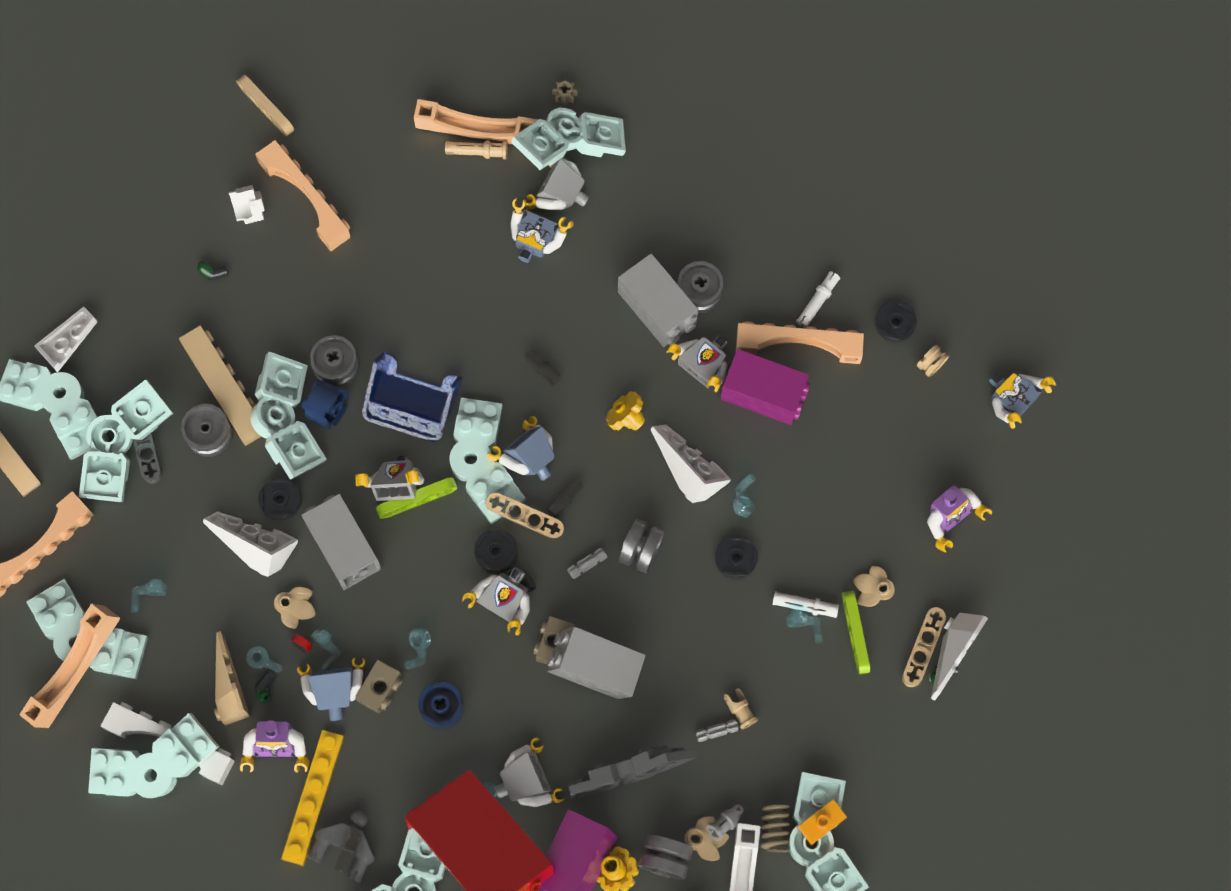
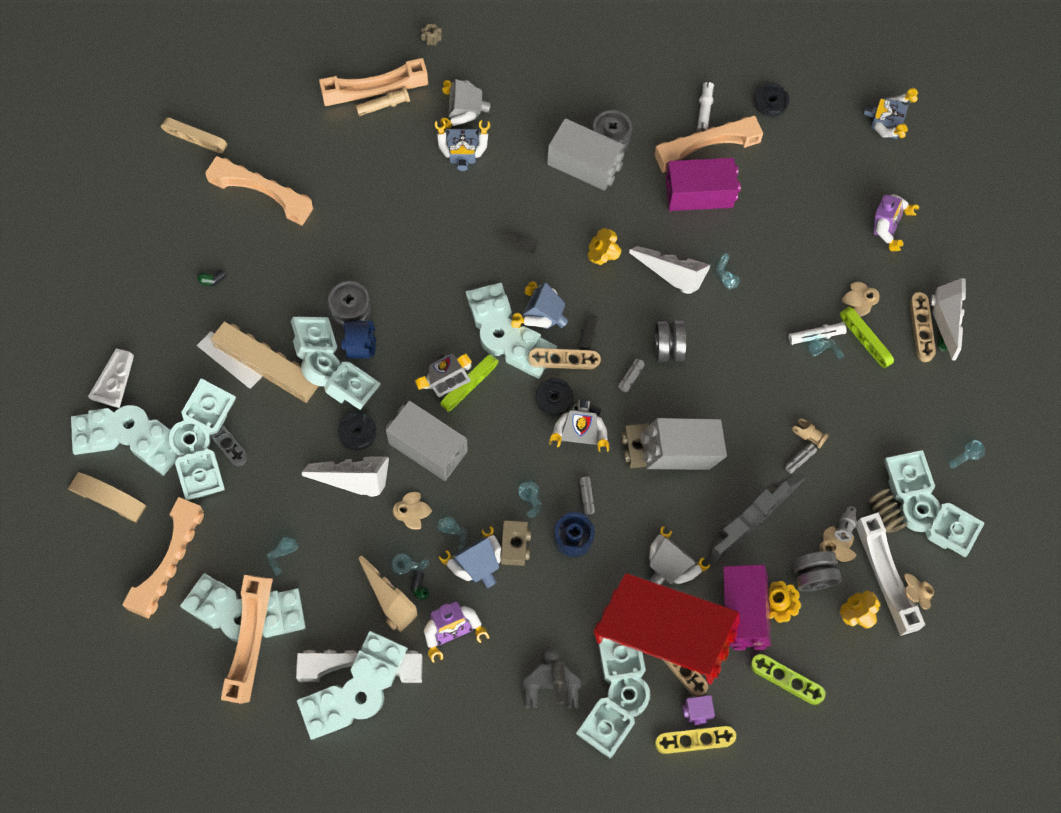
camera: 25 degrees left, 5 degrees down
(195, 382) = (240, 371): none -> white sticker
(204, 418) = (269, 401): flat silver wheel -> none
(247, 204) = (216, 214): white hair -> none
(301, 643) = (432, 537): red tile -> none
(312, 798) = (504, 658): yellow plate -> none
(407, 402) = (427, 313): clear blue windscreen -> none
(477, 670) = (587, 496): none -> light grey axle
(563, 131) = (446, 61): light aqua plate -> none
(702, 360) = (642, 186): torso -> none
(736, 546) = (748, 313): black plate -> none
(822, 822) = (923, 489): light orange plate -> none
(904, 806) = (974, 450): none -> clear light blue plate
(932, 360) = (815, 115): tan wheel -> none

